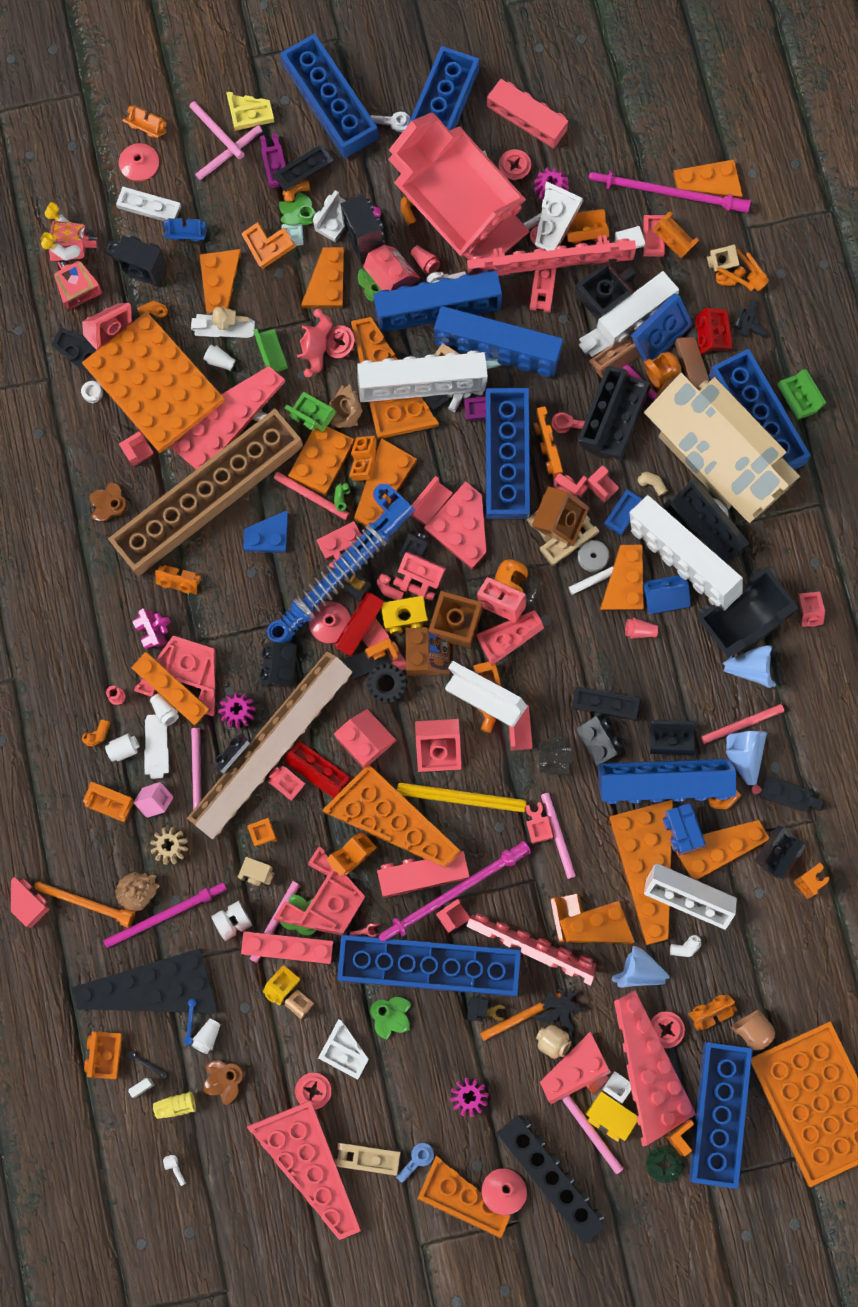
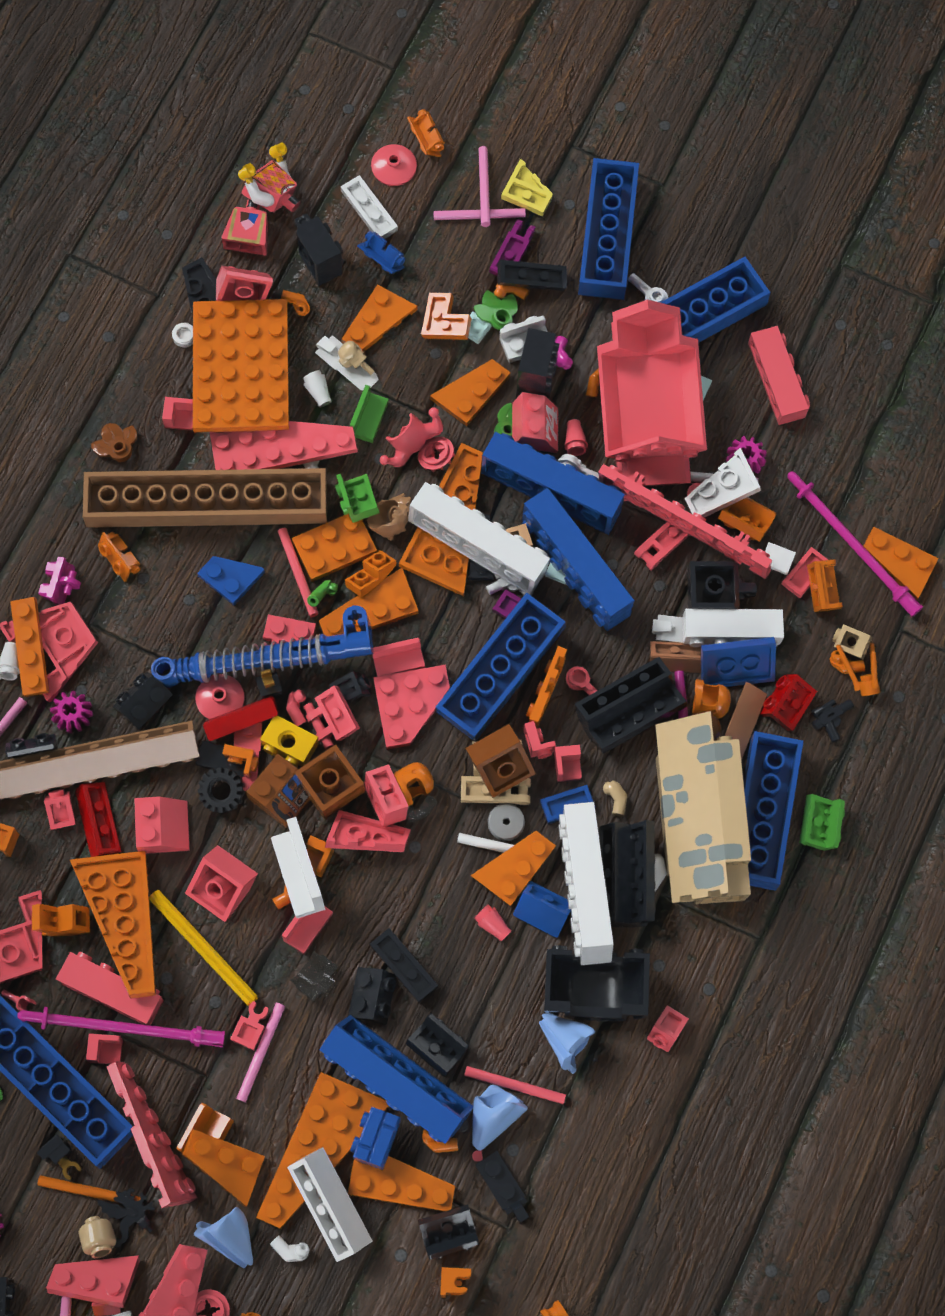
camera: 30 degrees right, 5 degrees down
(514, 156) = (732, 404): coral gear -> none

